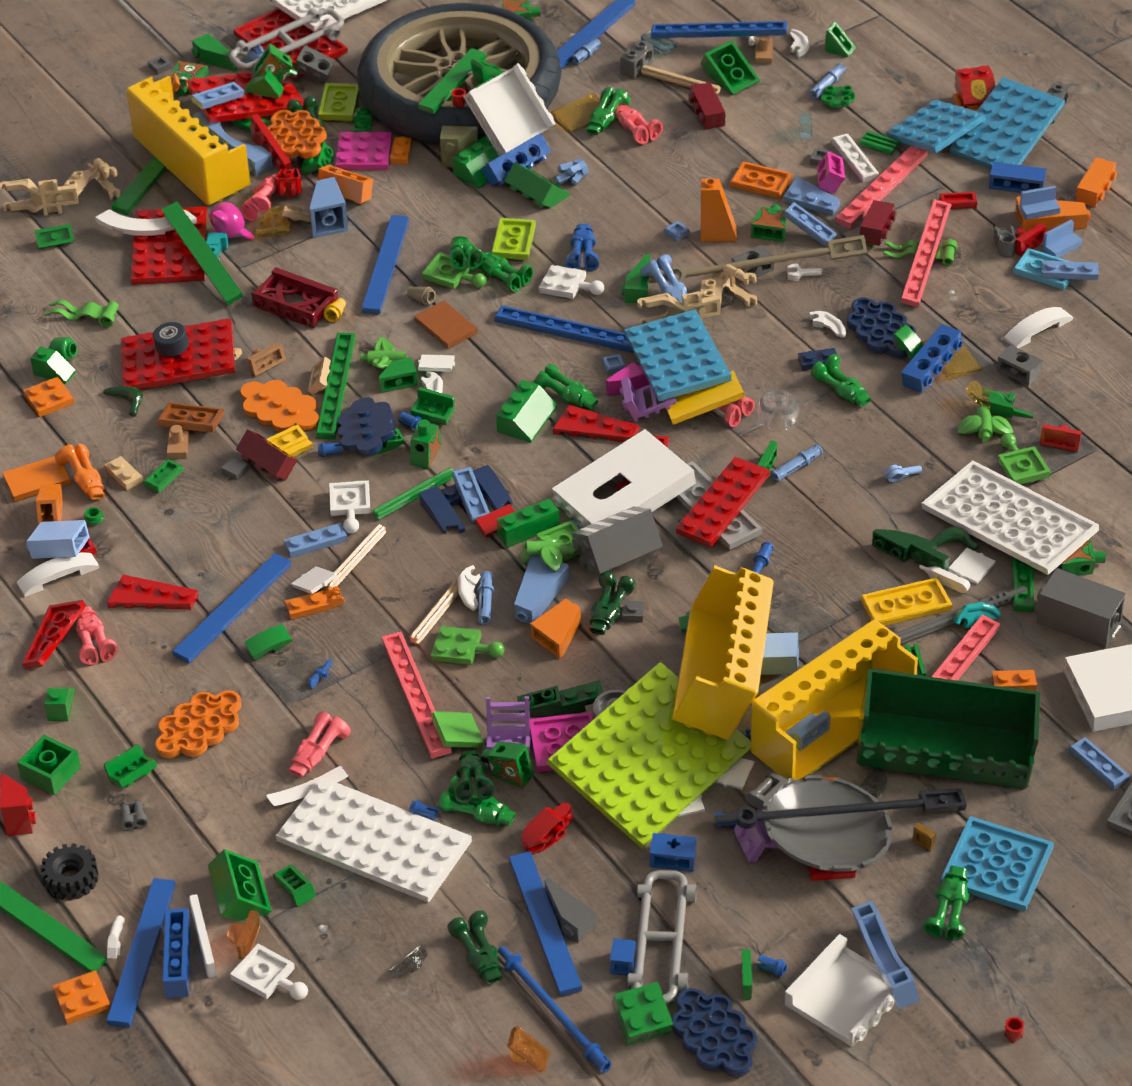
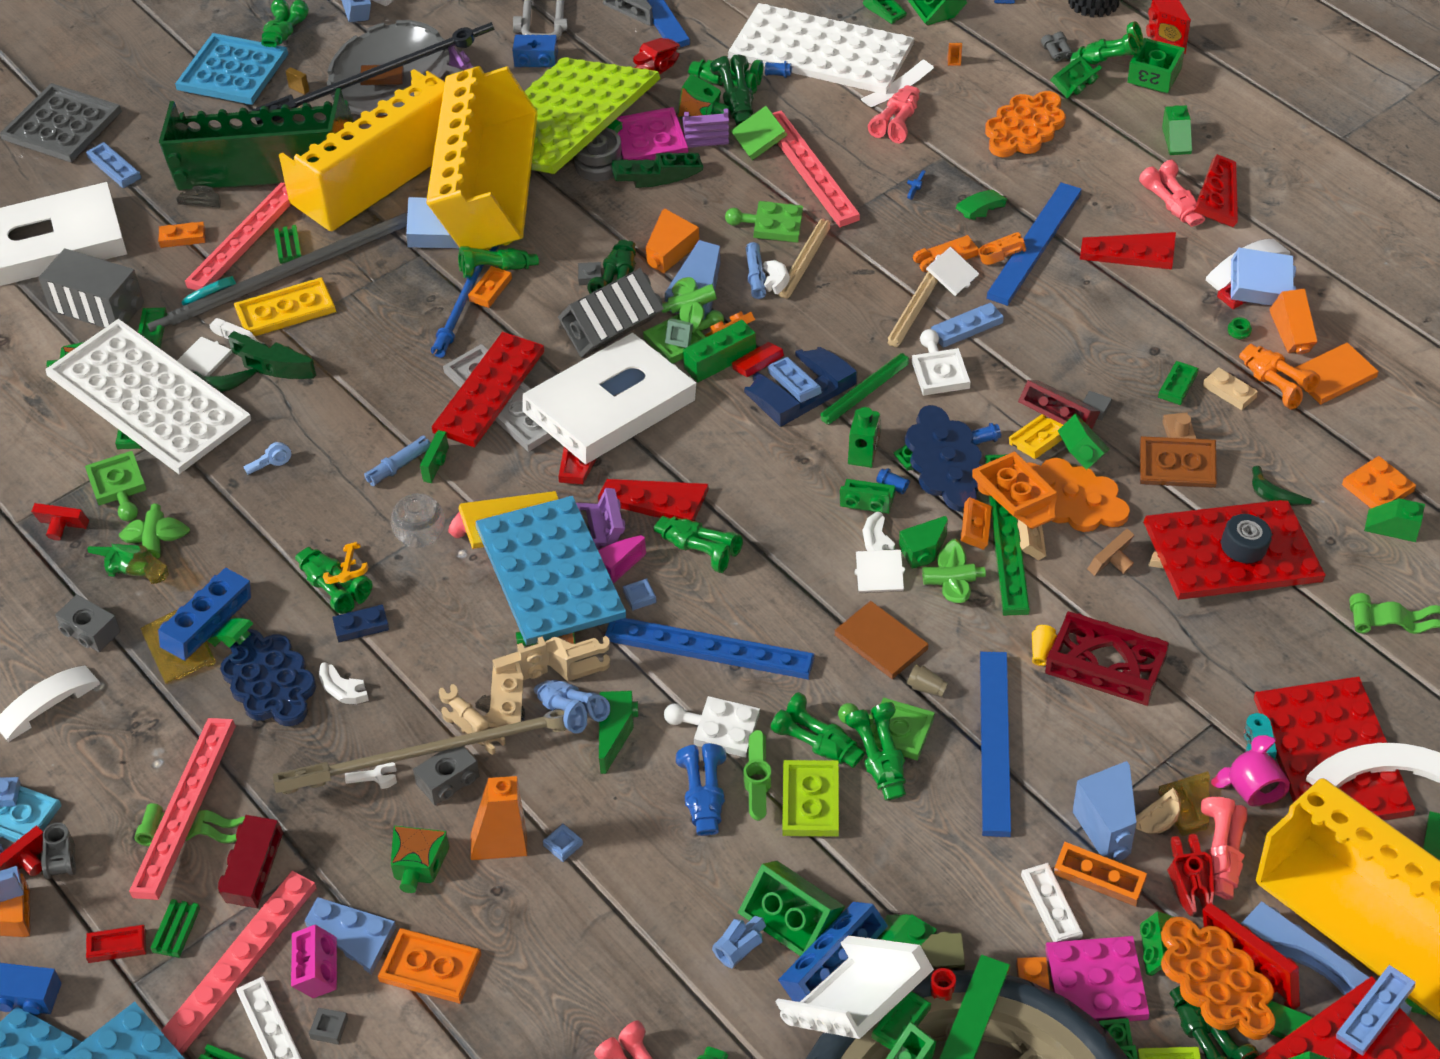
camera: 175 degrees right, 5 degrees up
(65, 347) = (1395, 545): green head -> none
(98, 786) = (1102, 49): none -> green piece
(202, 253) = (1272, 710): green tile -> none
(240, 807) = (954, 54): none -> orange piece
(258, 418) = (1082, 442): none -> green slope
(262, 596) = (1001, 248): none -> orange piece
(324, 388) = (1017, 489): none -> orange slope
(357, 385) = (976, 523): none -> orange plate
(380, 191) = (1051, 903): none -> white tile
(513, 545) = (747, 318): none -> orange plate
(525, 411) = (748, 501): green slope -> none
(546, 250) = (757, 765): none -> bright green piece
(562, 526) = (679, 333): none -> sand green tile
(809, 224) = (356, 849): medium blue tile -> none
(830, 367) = (346, 575): none -> light orange piece
(834, 828) = (389, 78): none -> reddish brown tile
(923, 198) = (173, 907): none -> green tile

